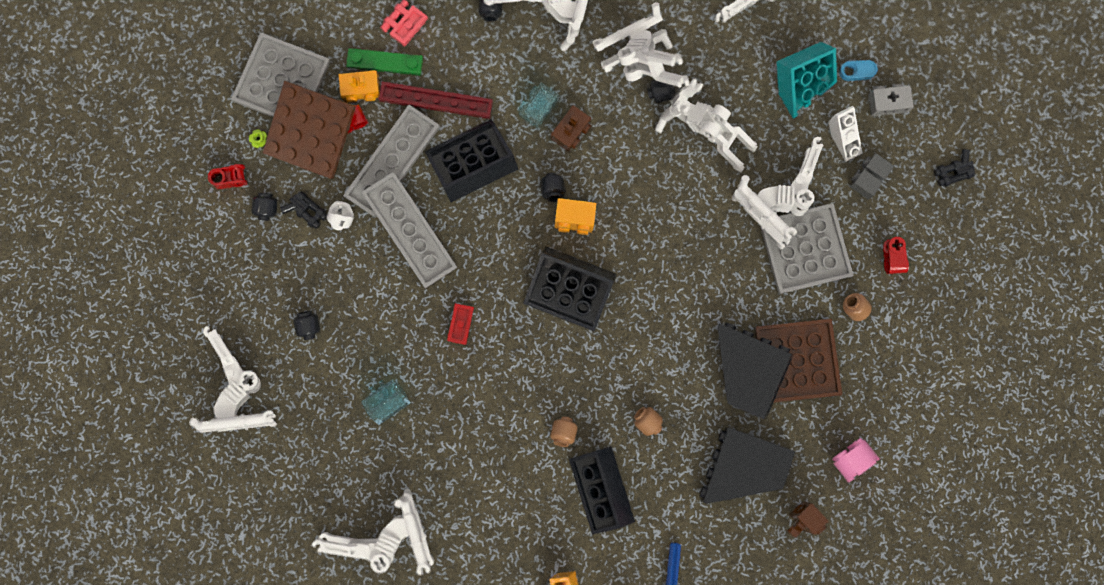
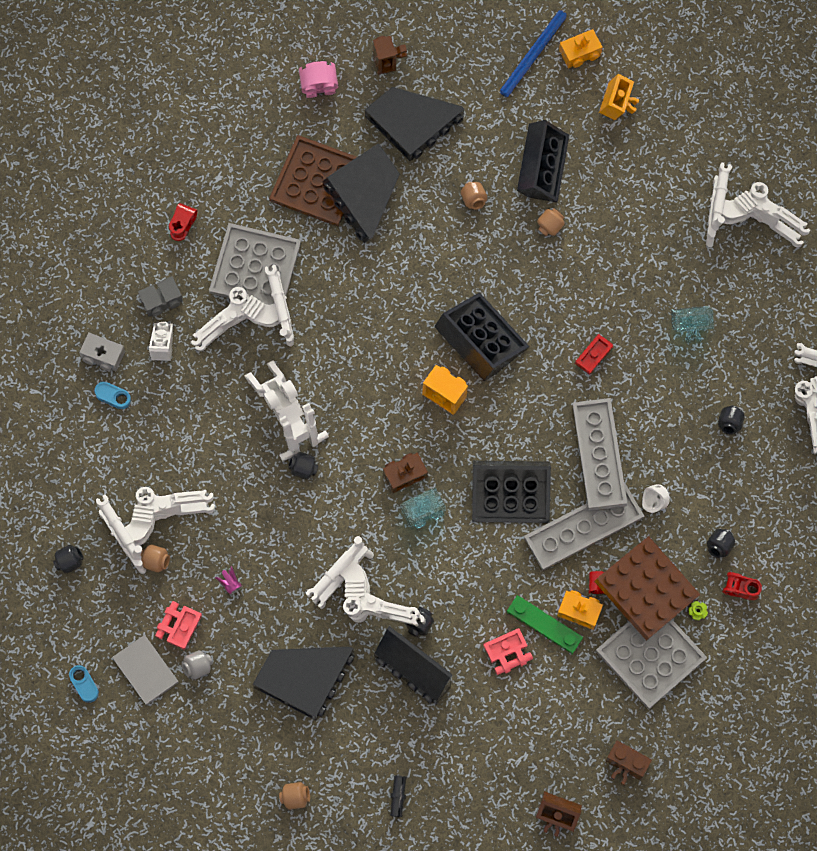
camera: 150 degrees left, 10 degrees down
(301, 205) = (685, 531): black piece -> none
(436, 100) = (515, 562): dark red plate -> none
(552, 187) = (450, 429): black head -> none
(640, 53) = (302, 505): white piece -> none
(806, 75) = (164, 412): teal wedge -> none
(857, 307) = (242, 195): medium nougat head -> none
(962, 170) = (75, 263): black piece -> none

